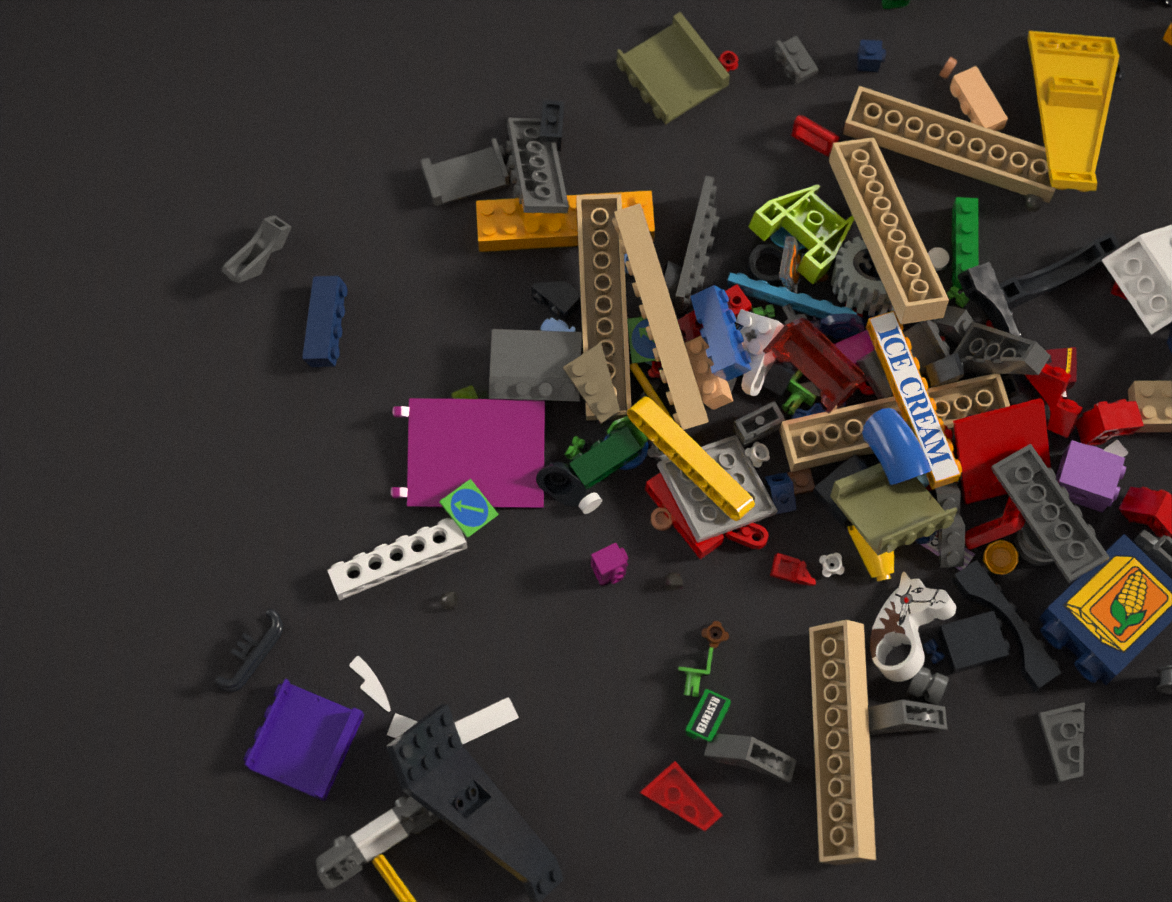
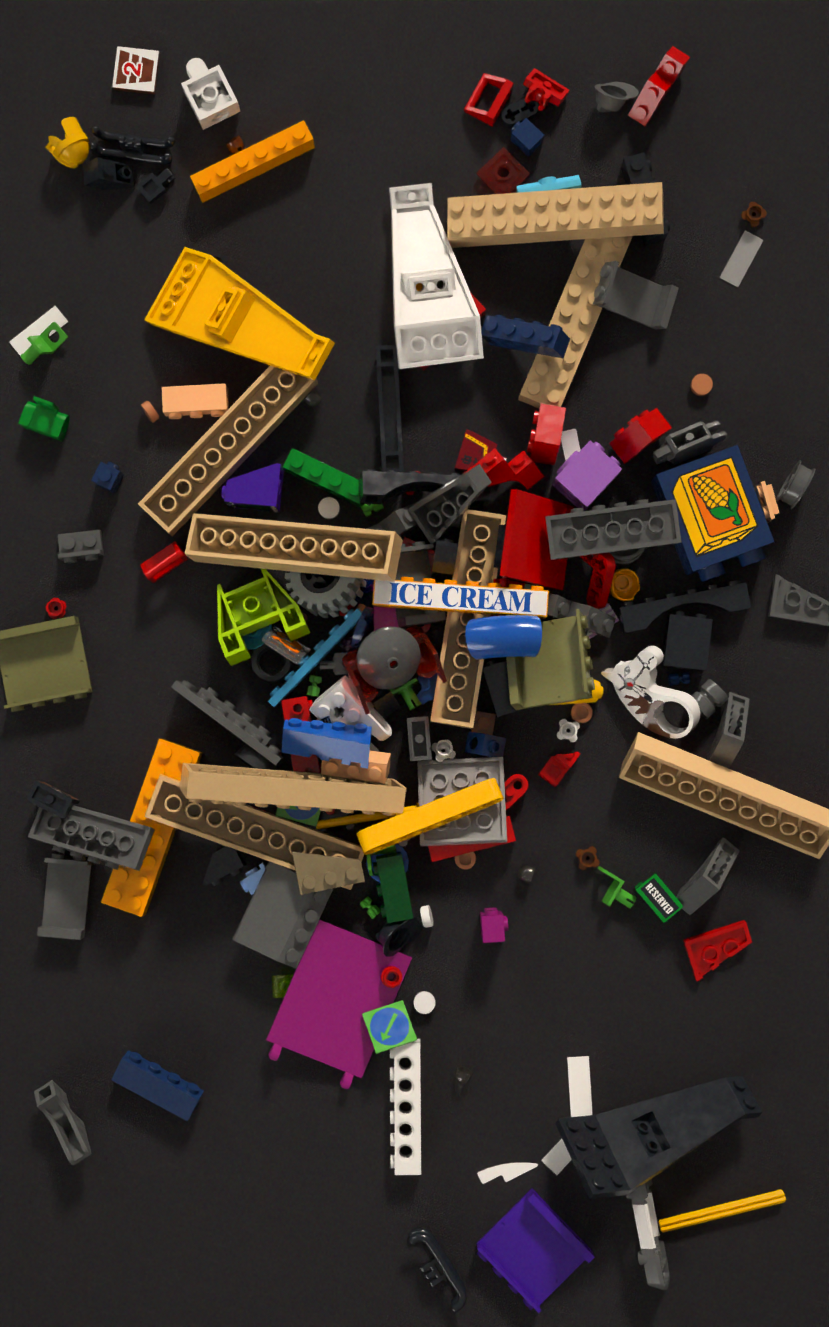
camera: 65 degrees left, 15 degrees up
(505, 536) = (424, 1002): none -> white tile
(517, 485) = (391, 983): none -> red plate
(840, 354) = (380, 650): none -> dark grey dish
(855, 571) = (581, 712): none -> nougat tile
(923, 184) = (256, 490): none -> dark purple slope
(1155, 655) = (767, 500): none -> light nougat piece

